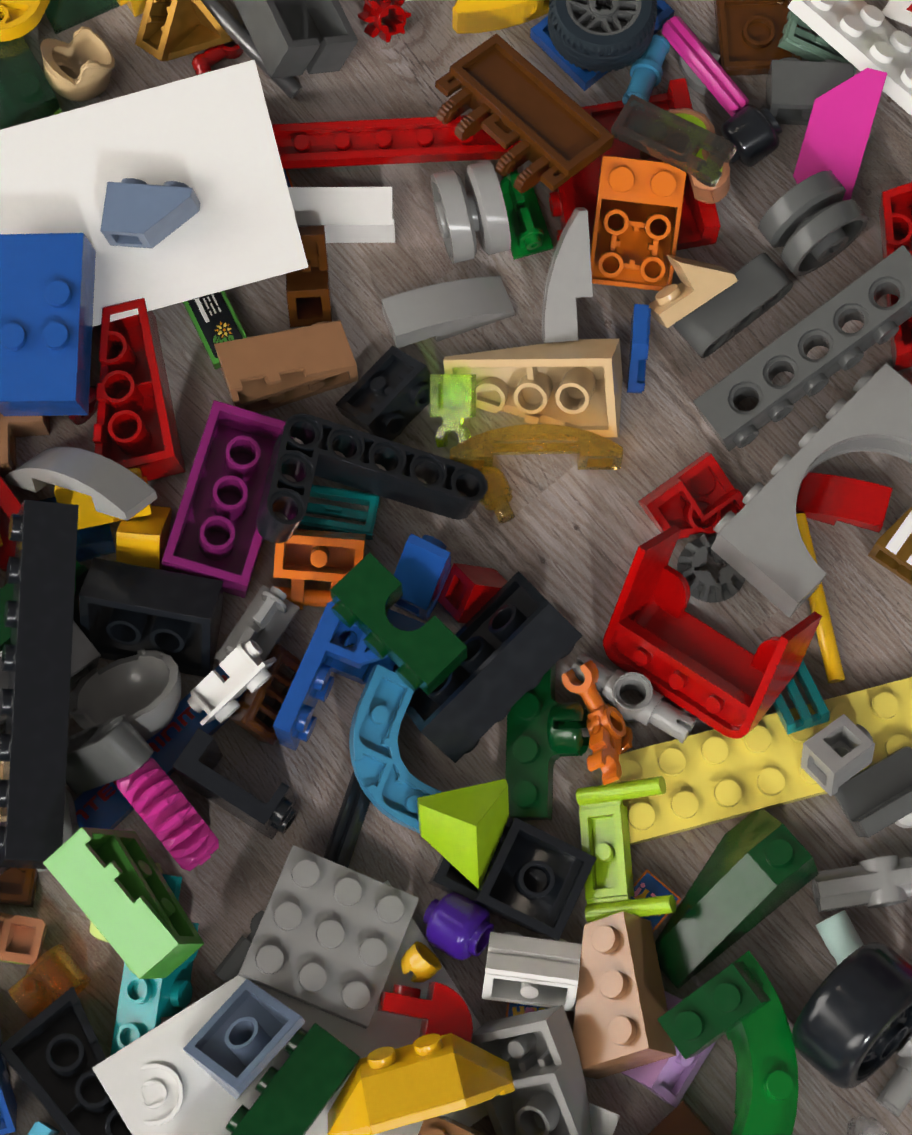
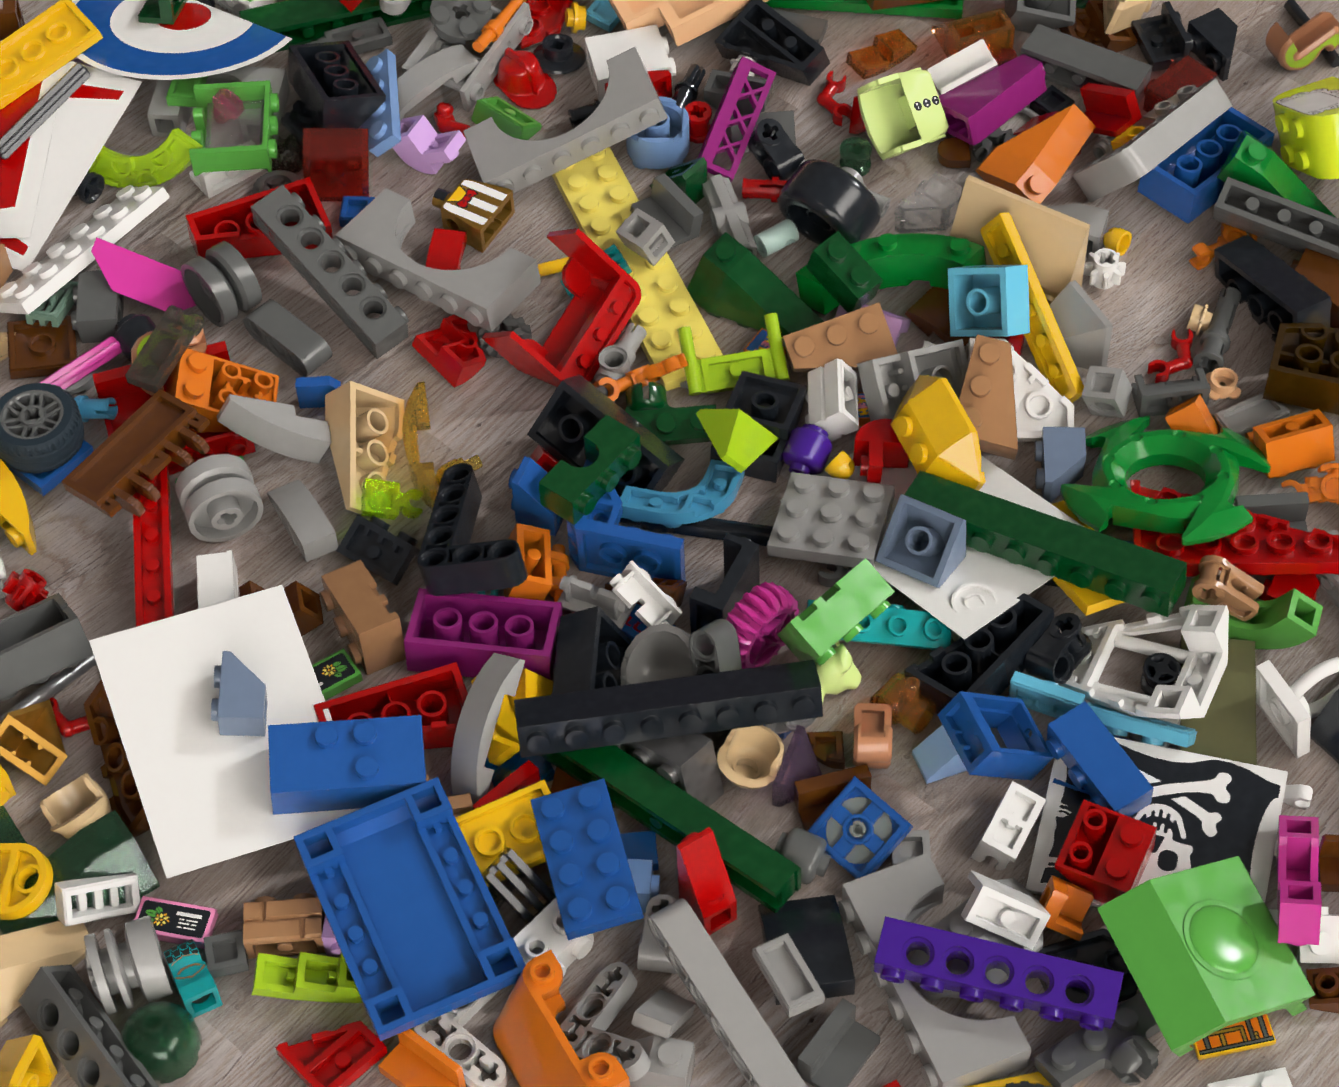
camera: 95 degrees left, 20 degrees down
(698, 285) = (282, 354): tan slope -> none

